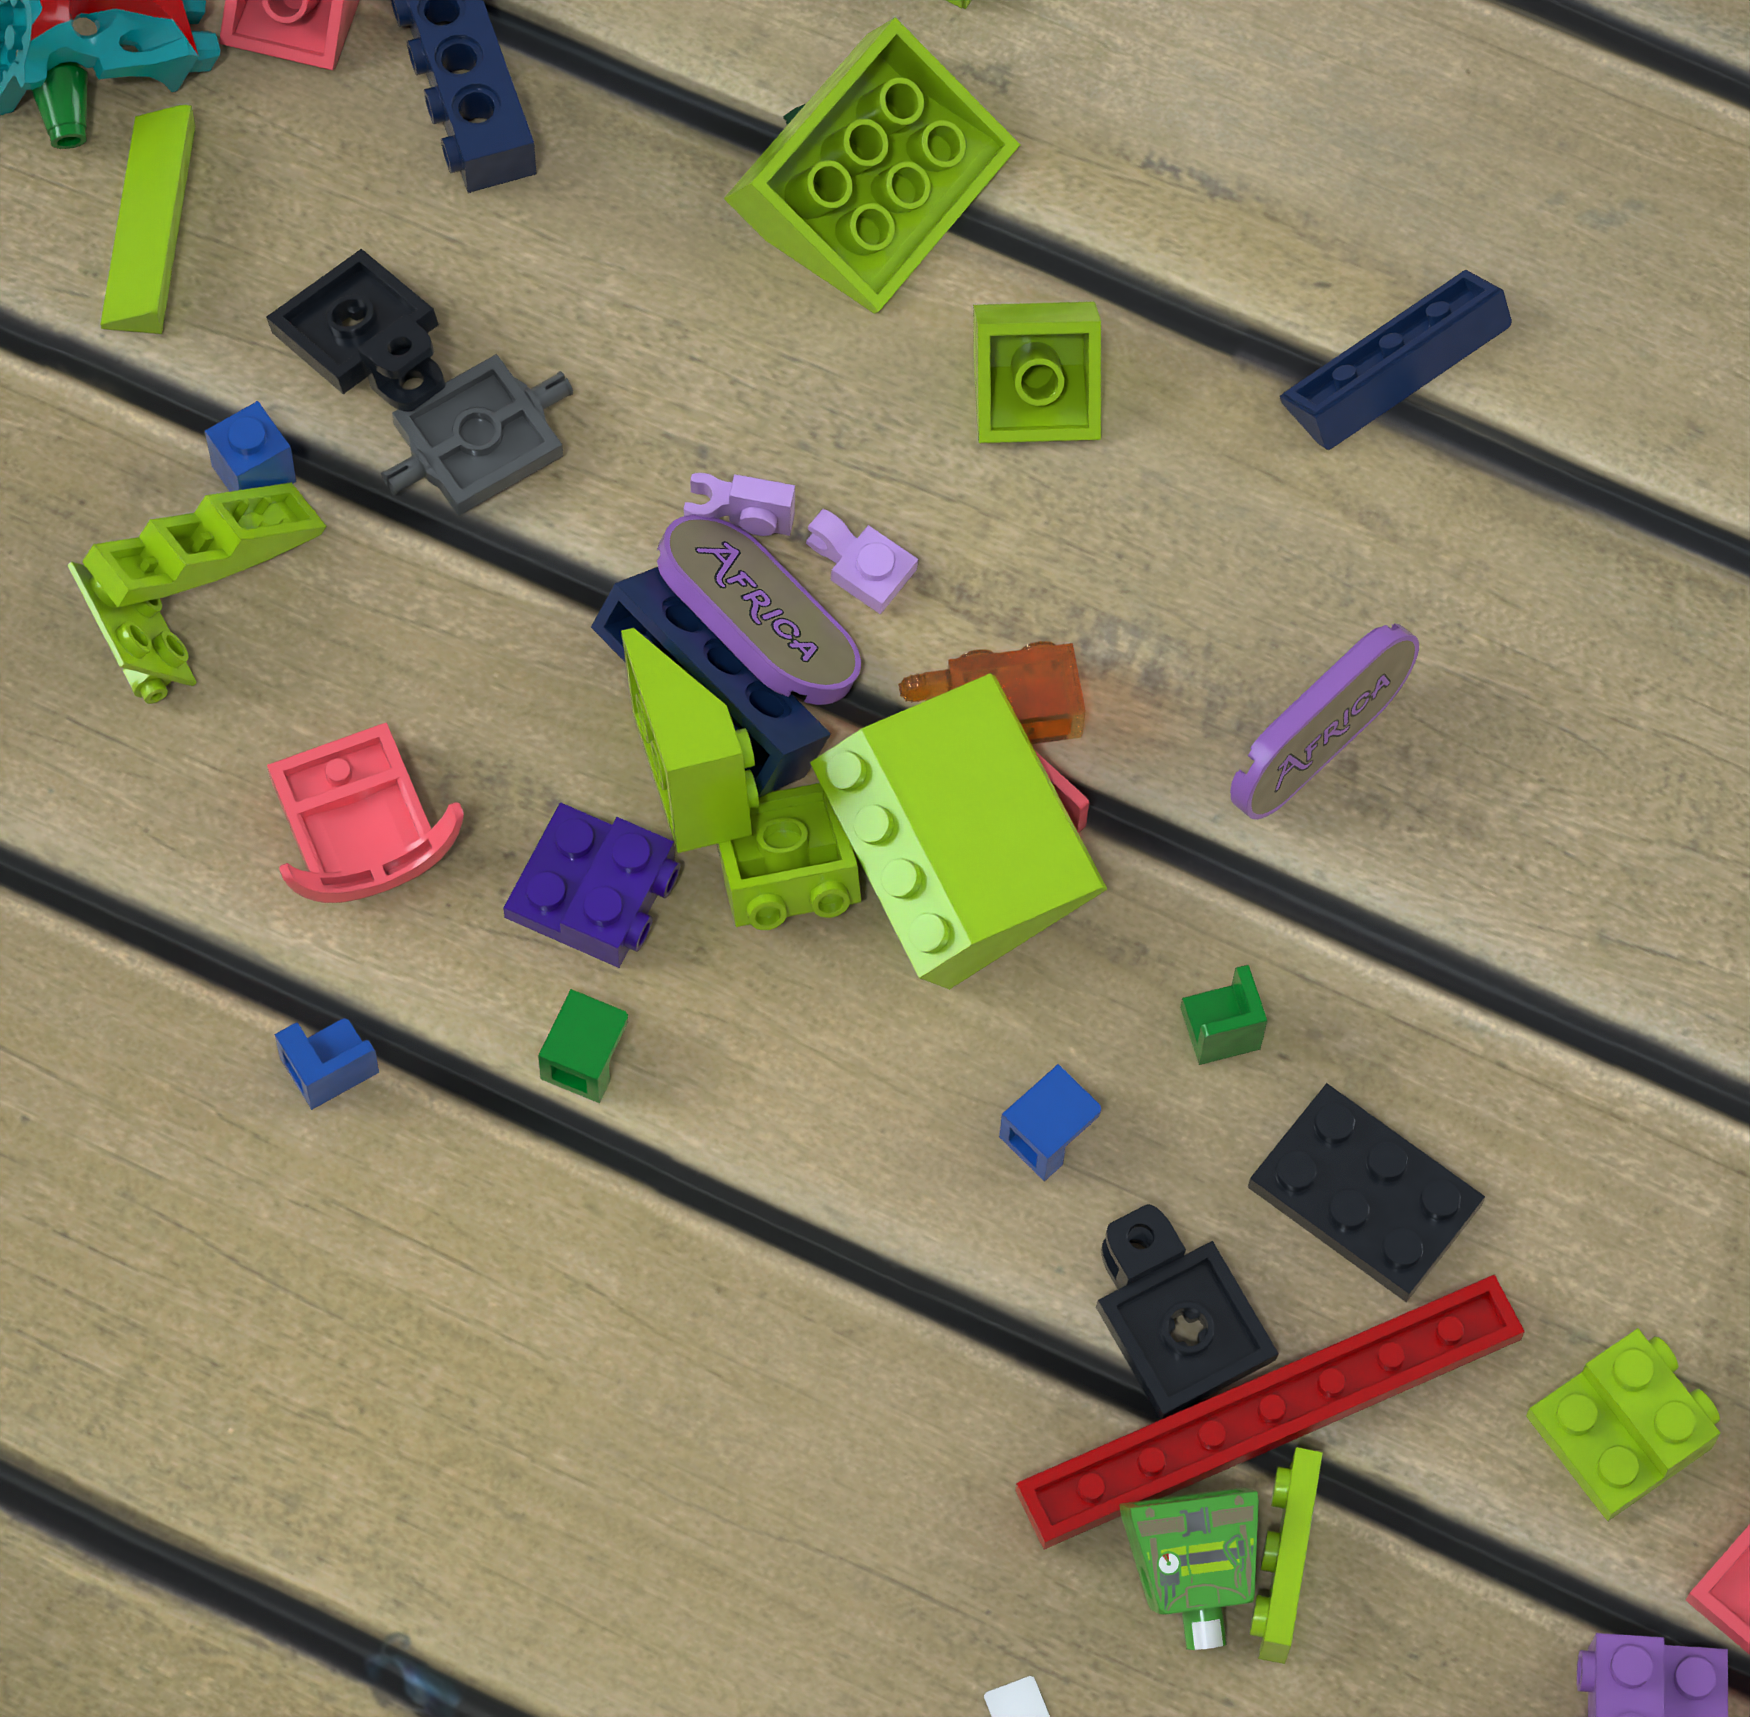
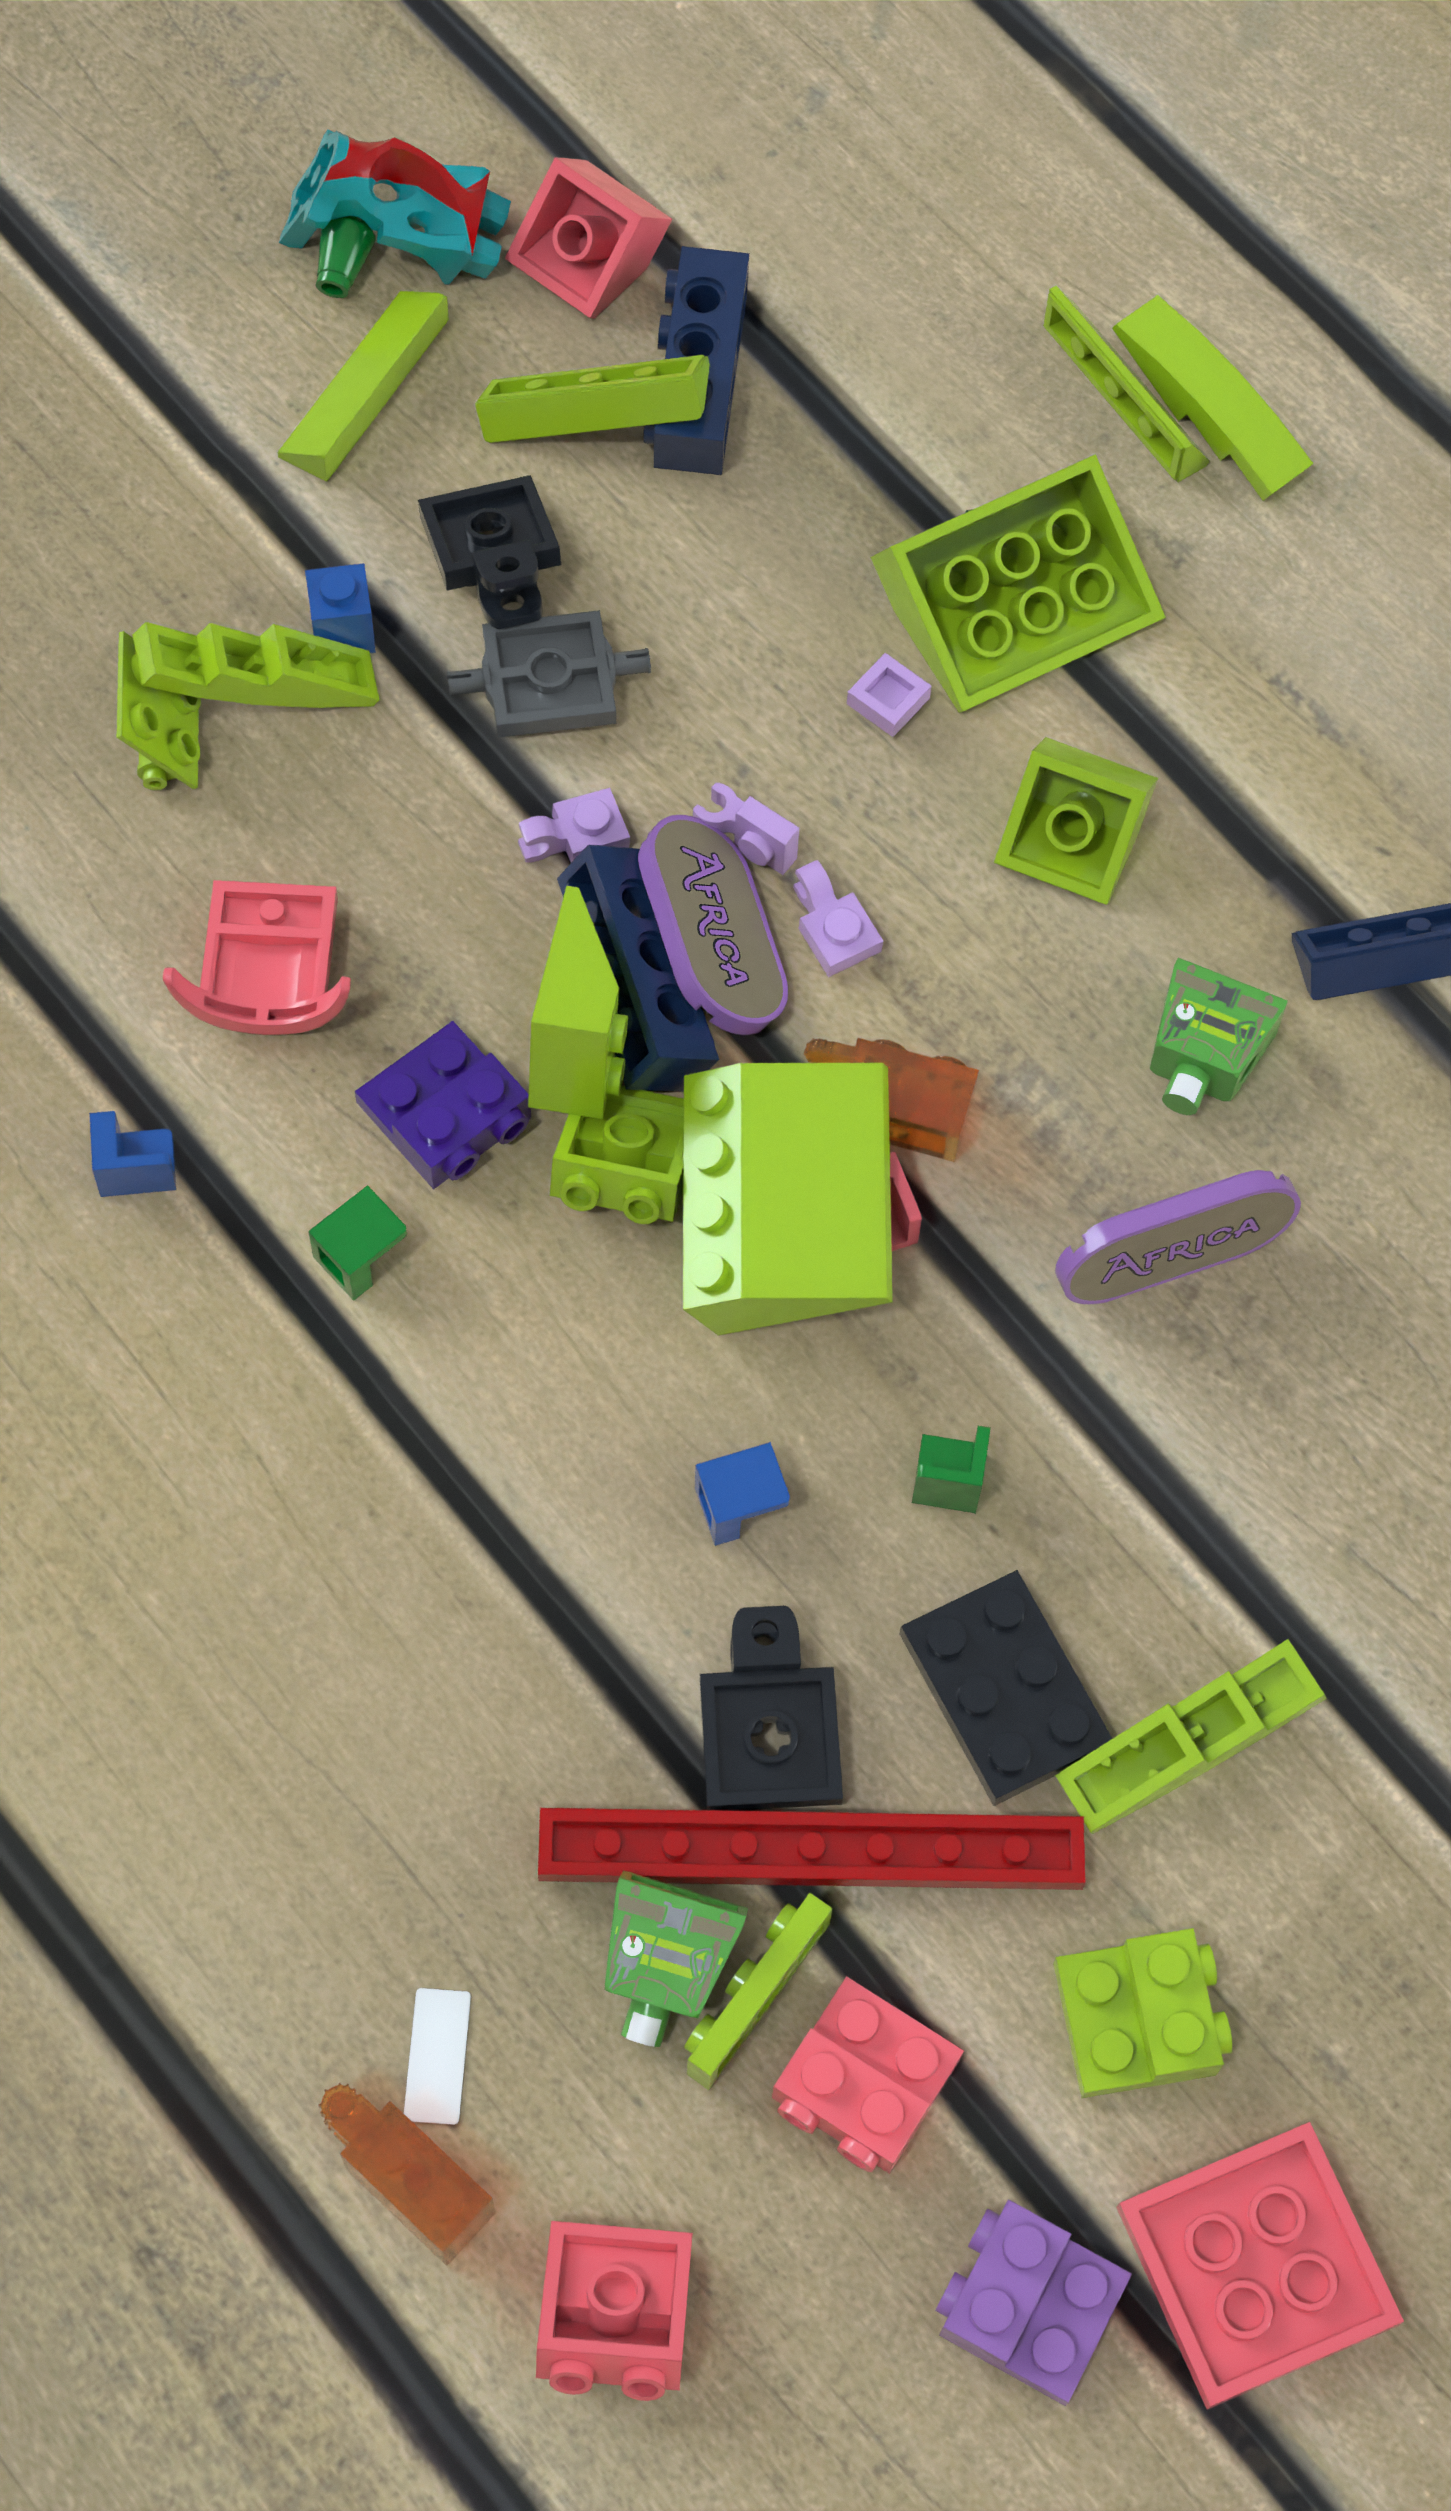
camera: 25 degrees right, 0 degrees up
(386, 150) = (594, 399): none -> lime slope
(580, 569) = (575, 824): none -> lavender plate
(805, 323) = (889, 694): none -> lavender plate
(1255, 522) = (1211, 1035): none -> bright green torso
(1417, 1588) = (865, 2077): none -> coral plate
(1549, 1163) = (1190, 1737): none -> lime slope

